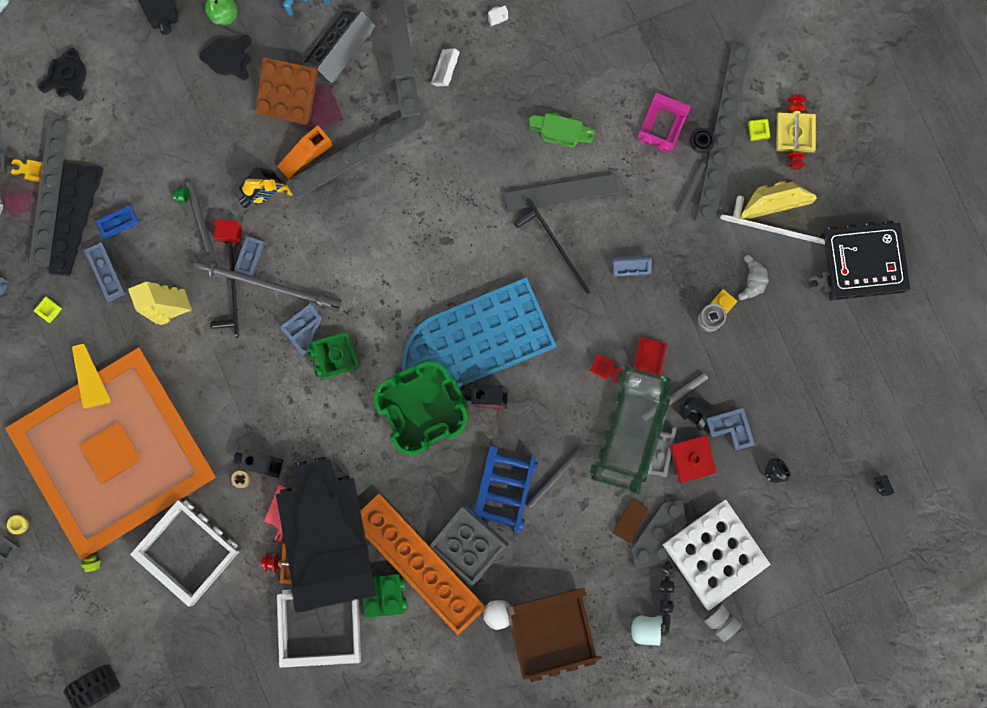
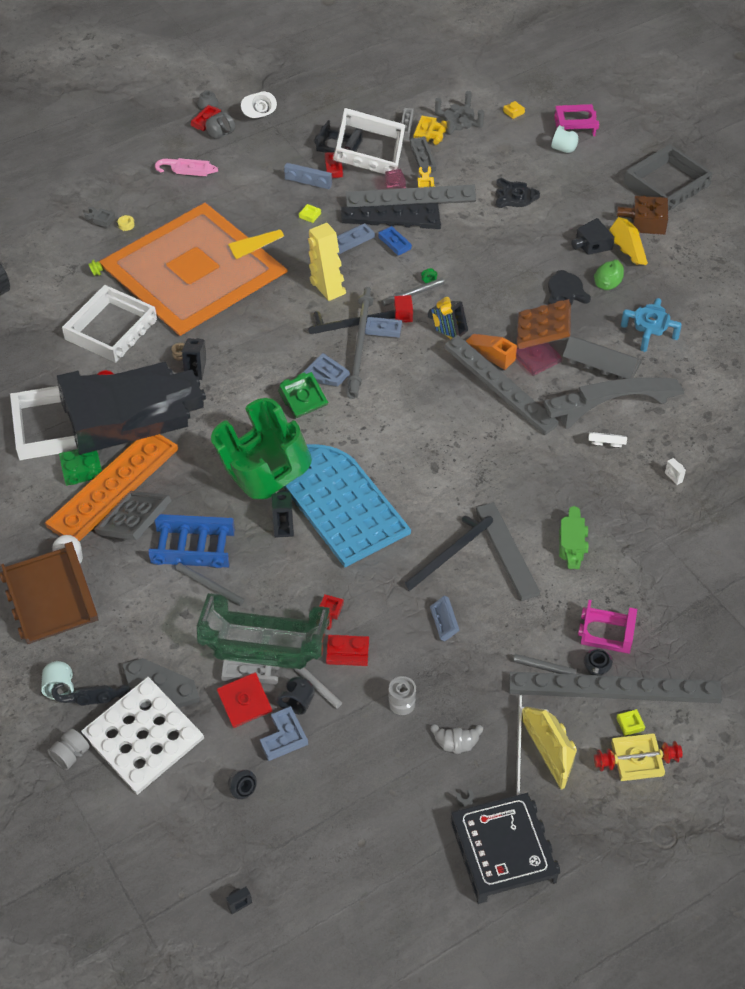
camera: 80 degrees right, 30 degrees down
(630, 521) = (172, 655): reddish brown tile -> none
(724, 300) = (423, 711): yellow plate -> none

